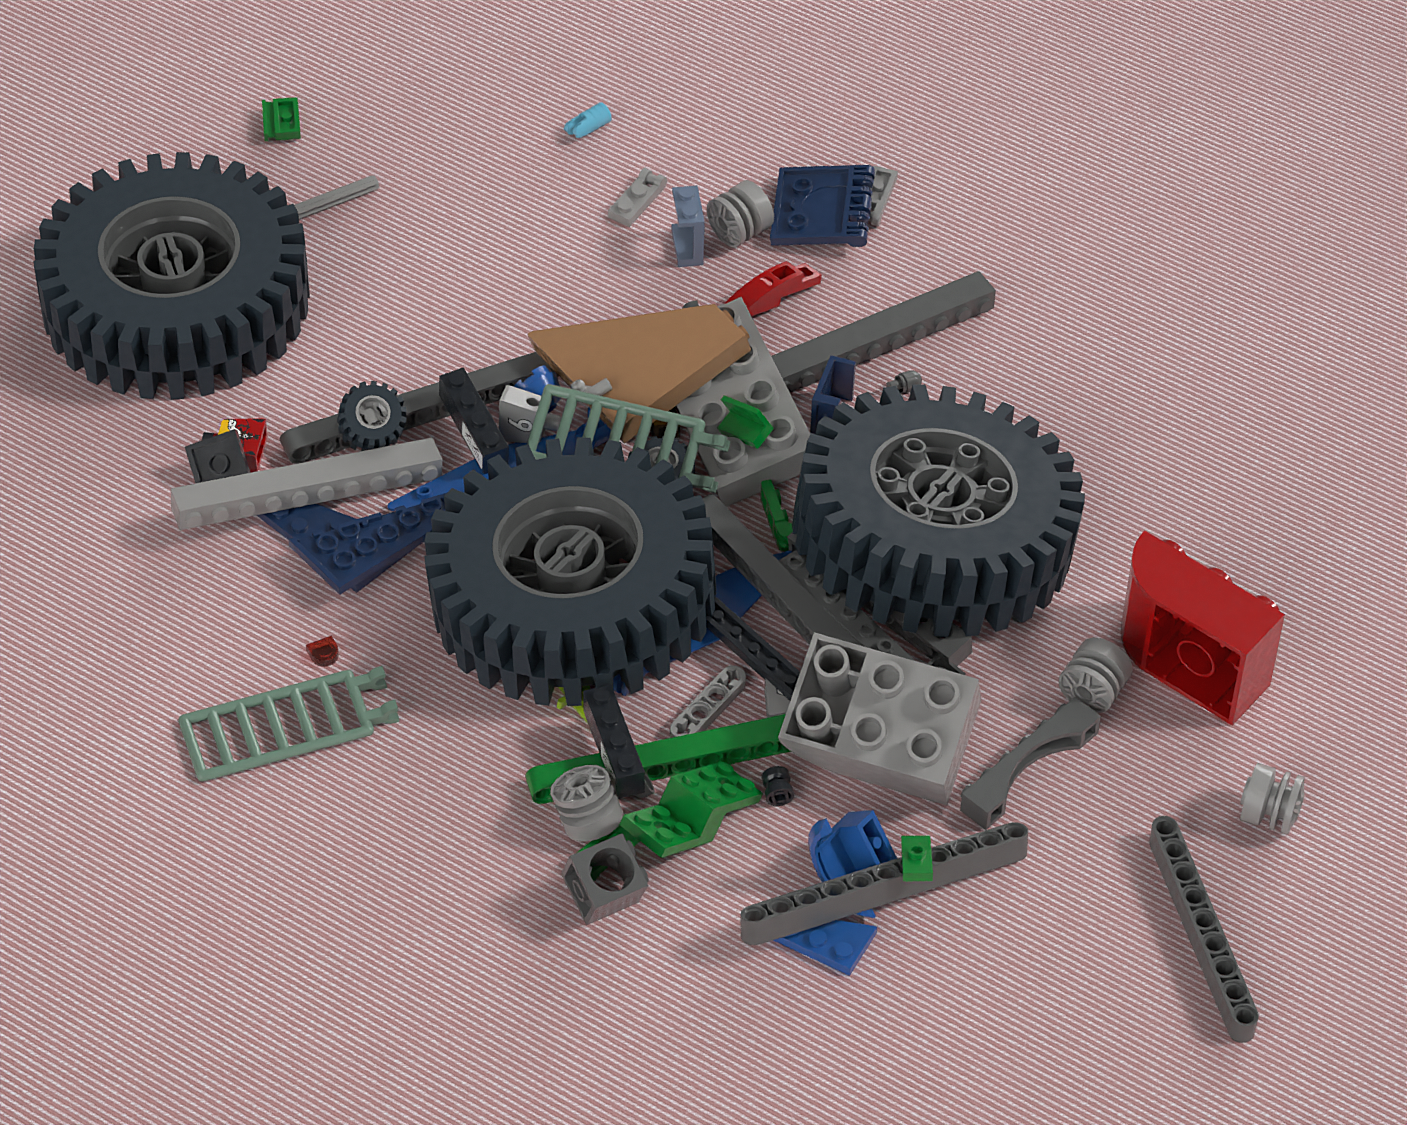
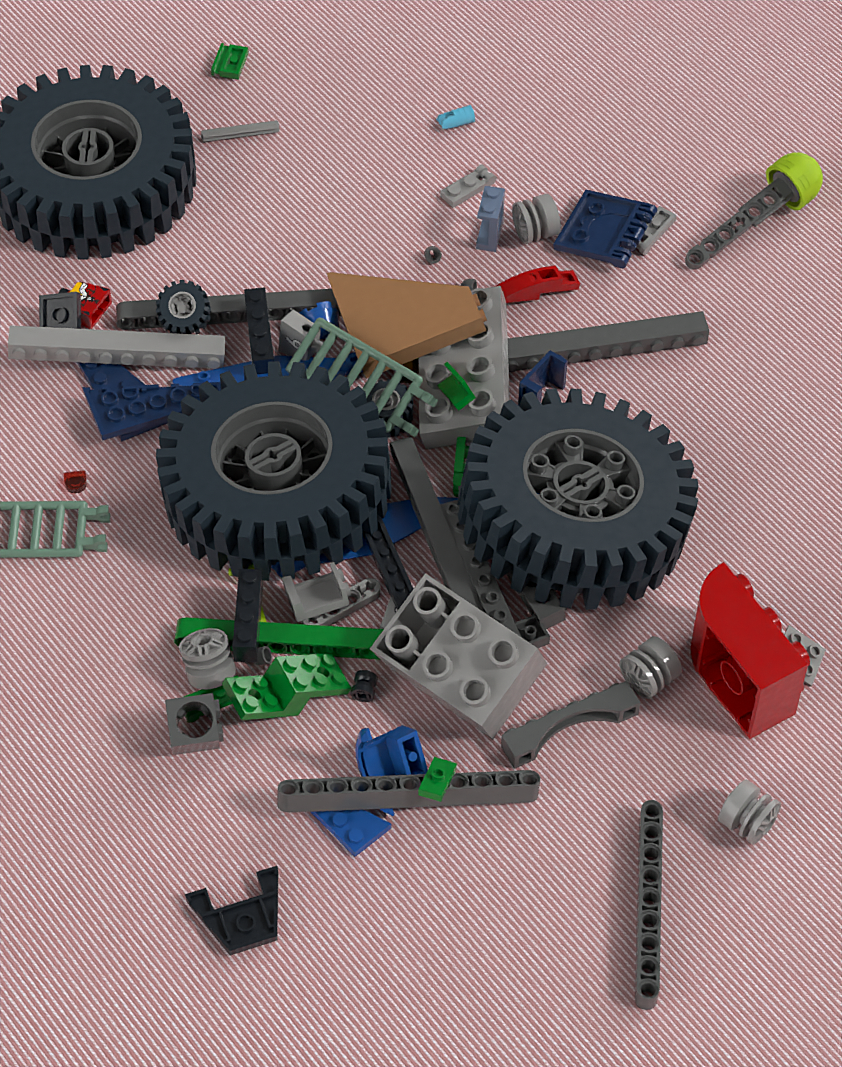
camera: 20 degrees right, 5 degrees up
(598, 389) = (357, 331): light grey arm -> none
(636, 282) = (437, 253): none -> dark grey hinge
(678, 699) = (317, 594): none -> light grey panel
(757, 1082) = (245, 922): none -> black wing
(905, 380) = (609, 386): dark grey cylinder -> none
(1020, 103) = (791, 181): none -> dark grey piece

